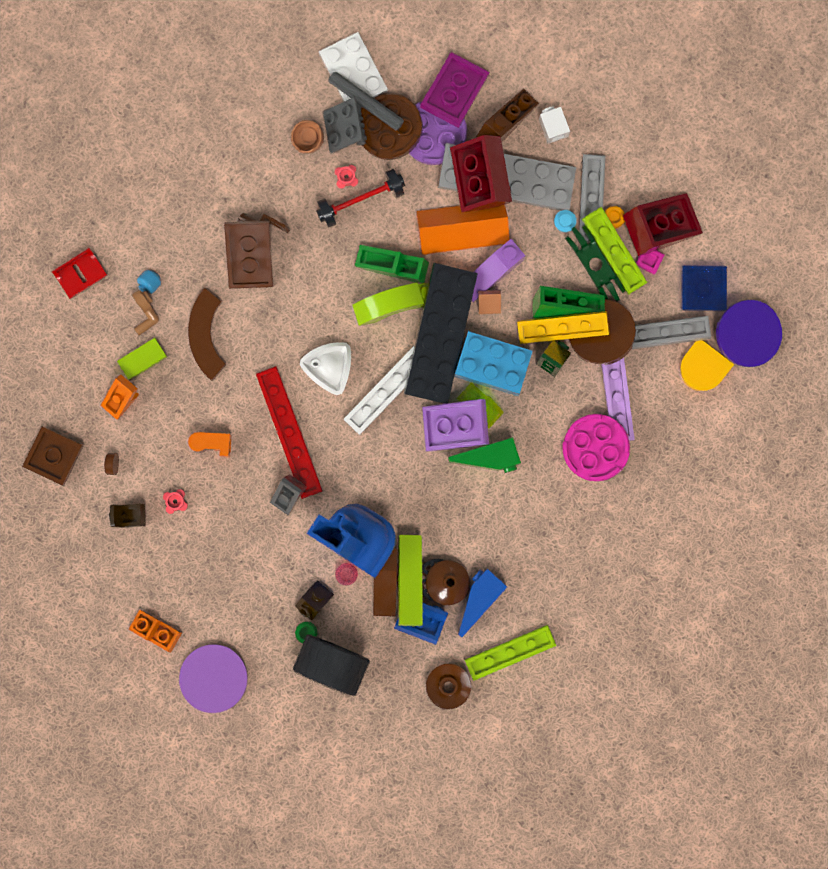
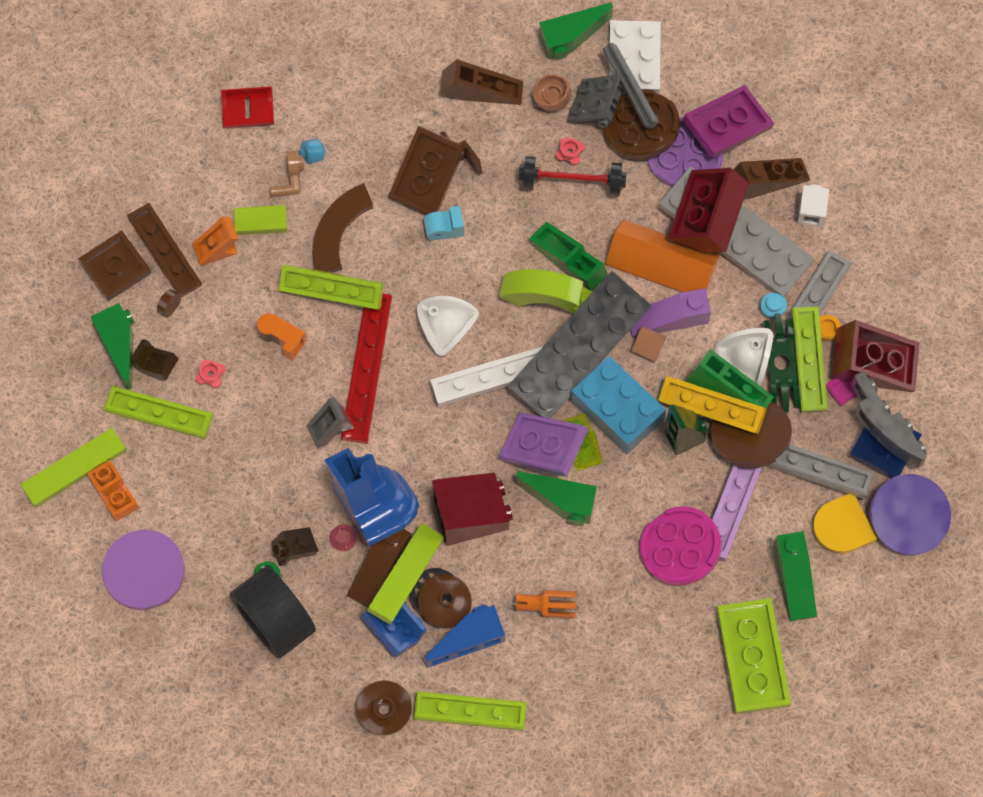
camera: 30 degrees right, 15 degrees down
(82, 422) = (164, 250): none -> reddish brown tile
(89, 512) = (117, 336): none -> green slope
(115, 629) = (73, 467): none -> lime tile
(153, 552) = (158, 412): none -> lime tile
(228, 386) = (331, 286): none -> lime plate
(249, 159) = (480, 84): none -> reddish brown slope
(284, 288) = (444, 224): none -> medium azure leg
(291, 80) = (569, 31): none -> green slope
(429, 501) = (470, 507): none -> dark red slope
(524, 542) = (544, 603): none -> orange arm
(567, 272) = (747, 351): none -> white hat
(691, 425) = (796, 575): none -> green slope
(691, 501) = (753, 656): none -> lime plate
(707, 278) = (891, 431): none -> flat silver slope

